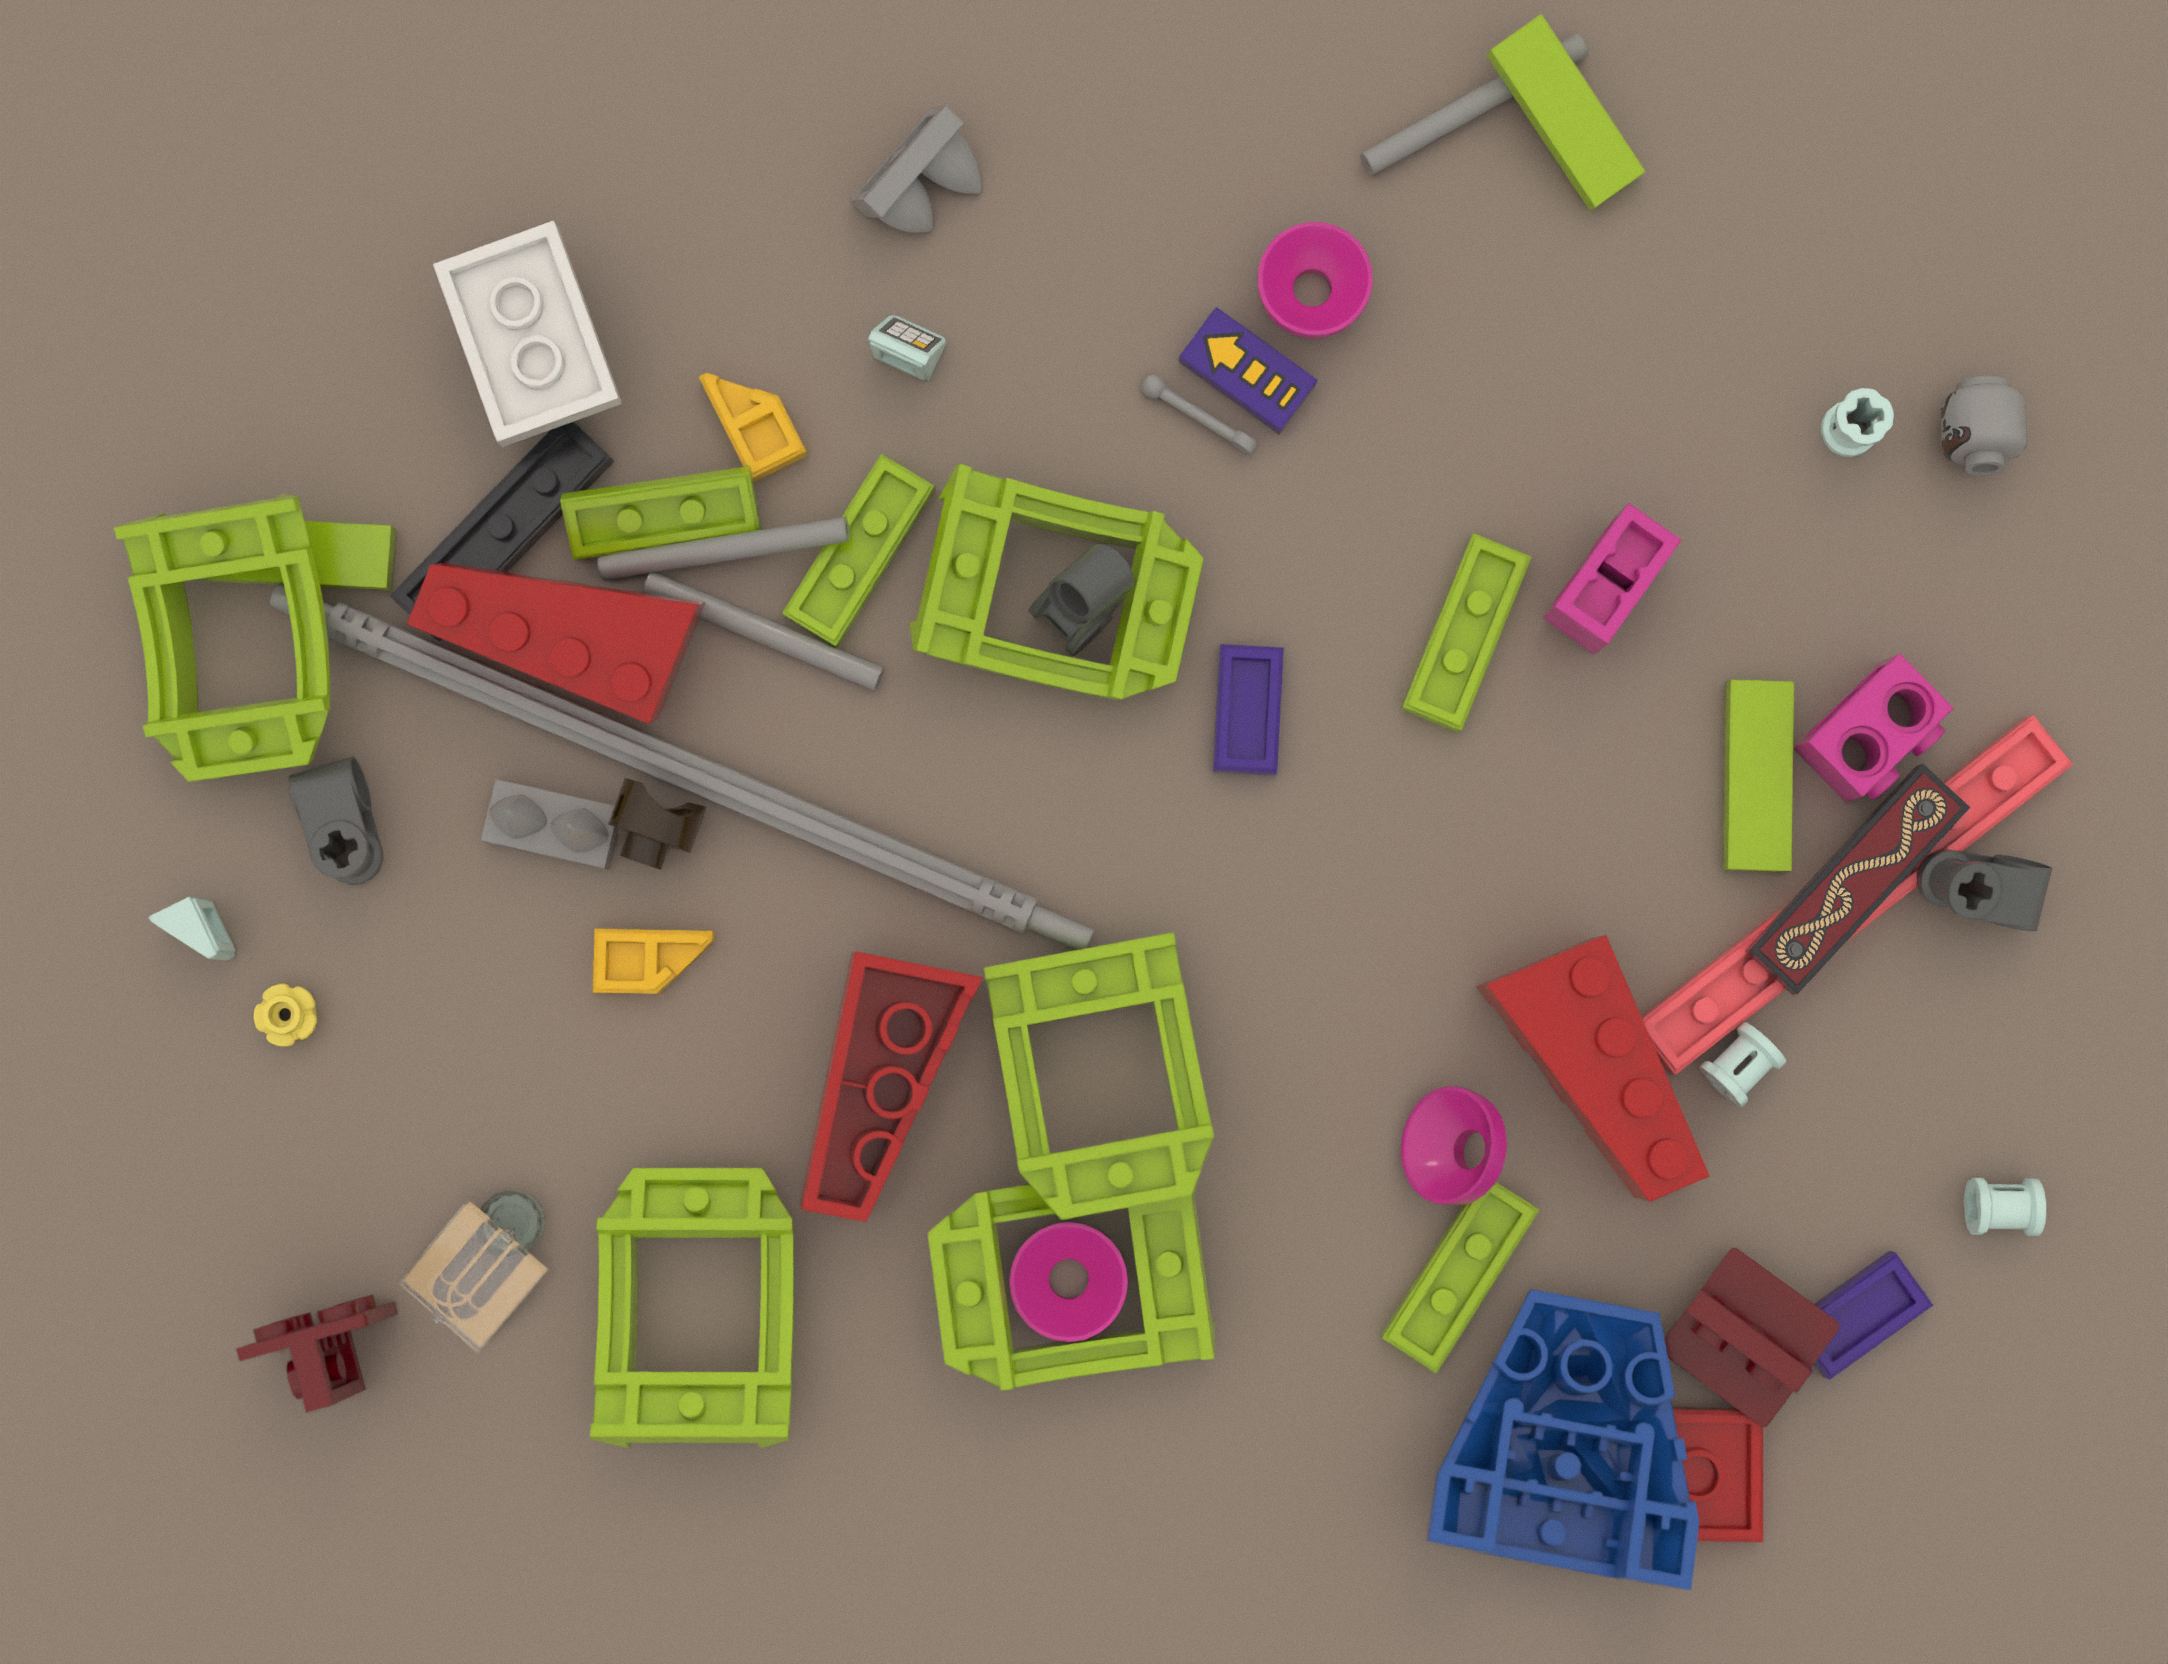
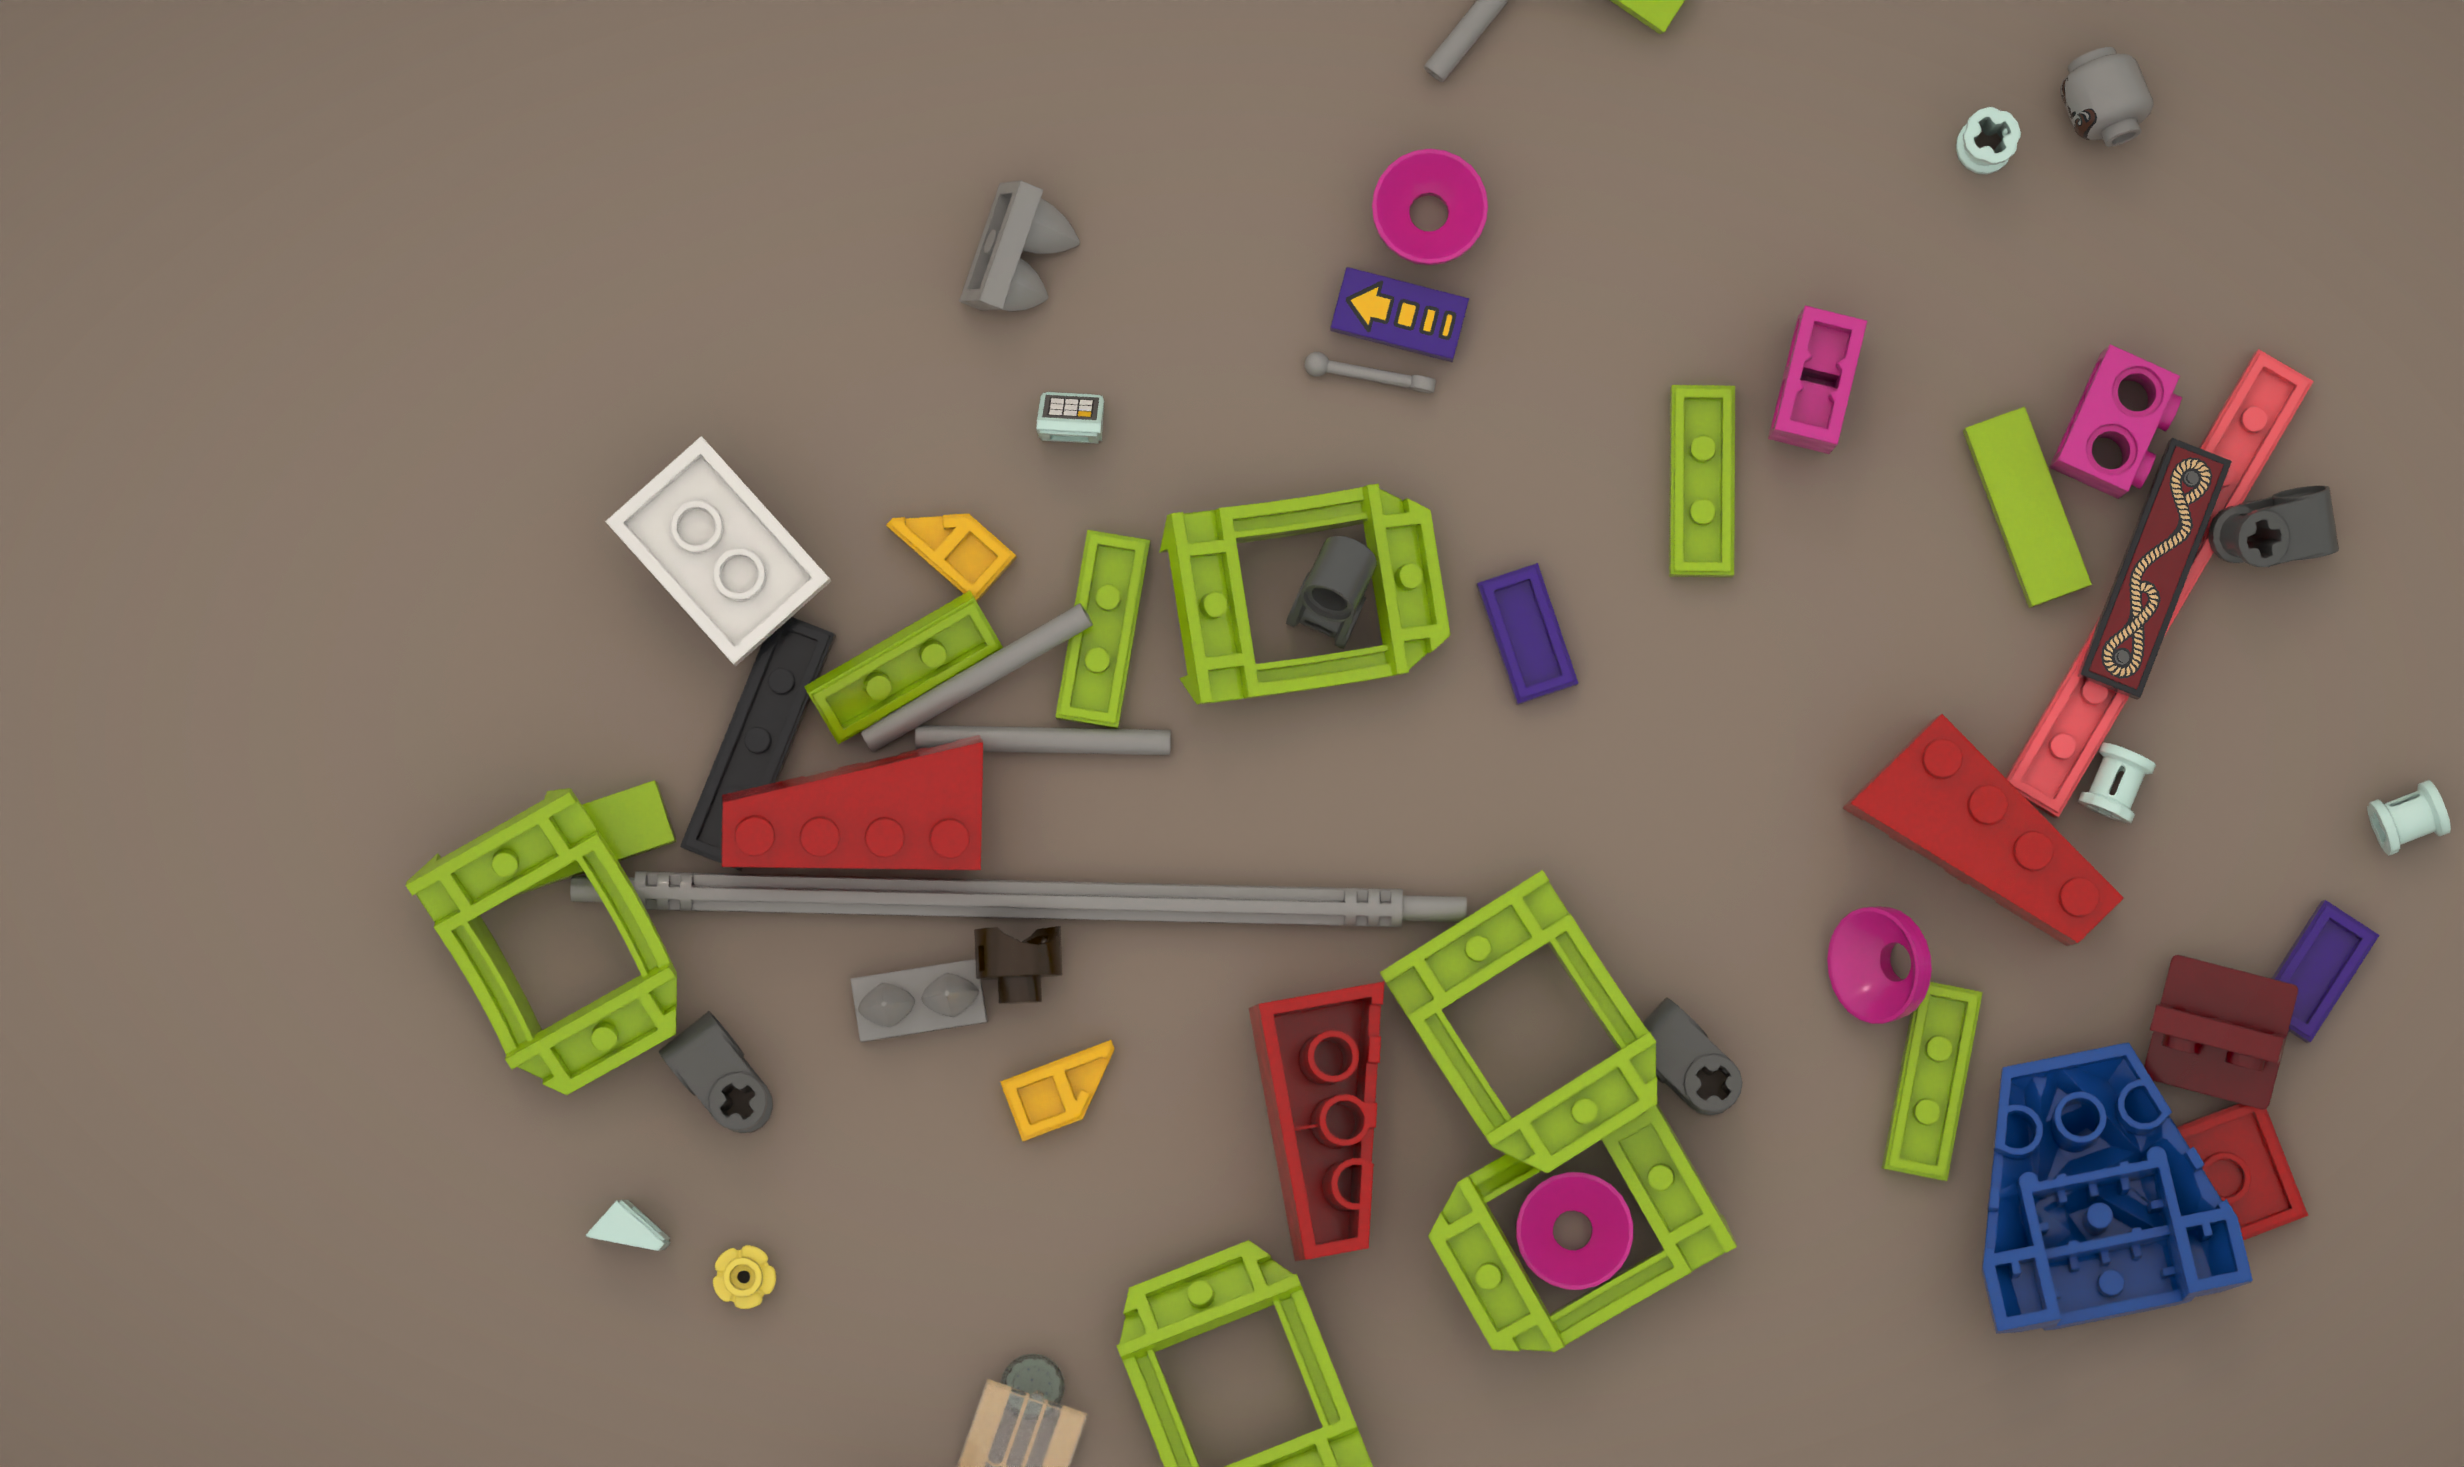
camera: 20 degrees left, 0 degrees up
(1238, 1154) = (1686, 1050): none -> dark grey piece

